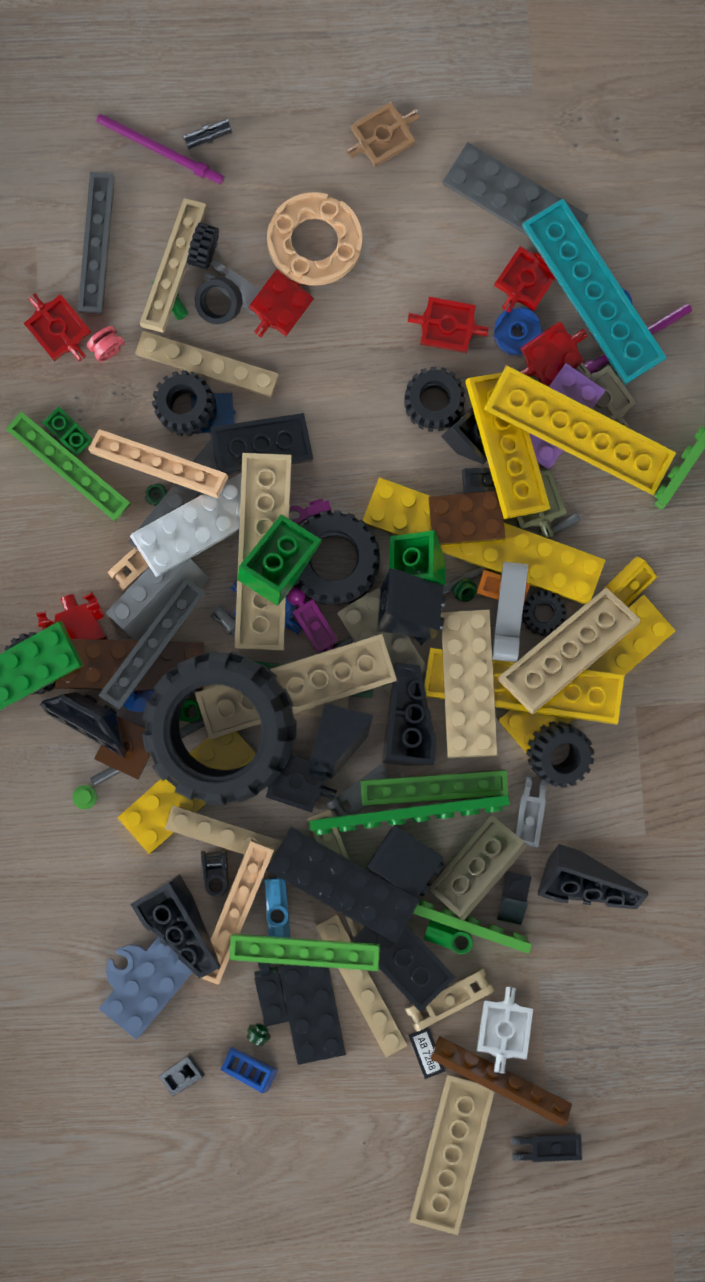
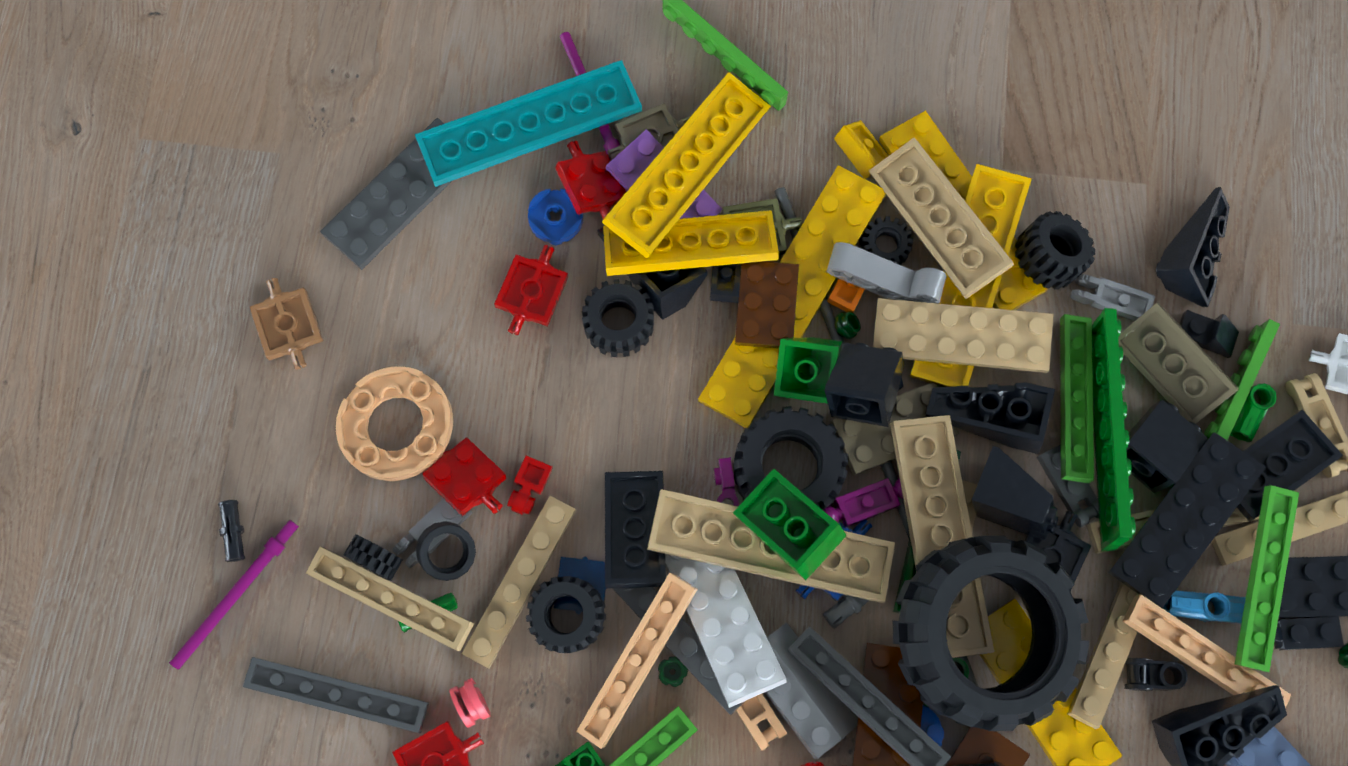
camera: 85 degrees left, 10 degrees down
(290, 357) = (532, 478): none -> red plate
(525, 279) = (497, 195): red plate -> none

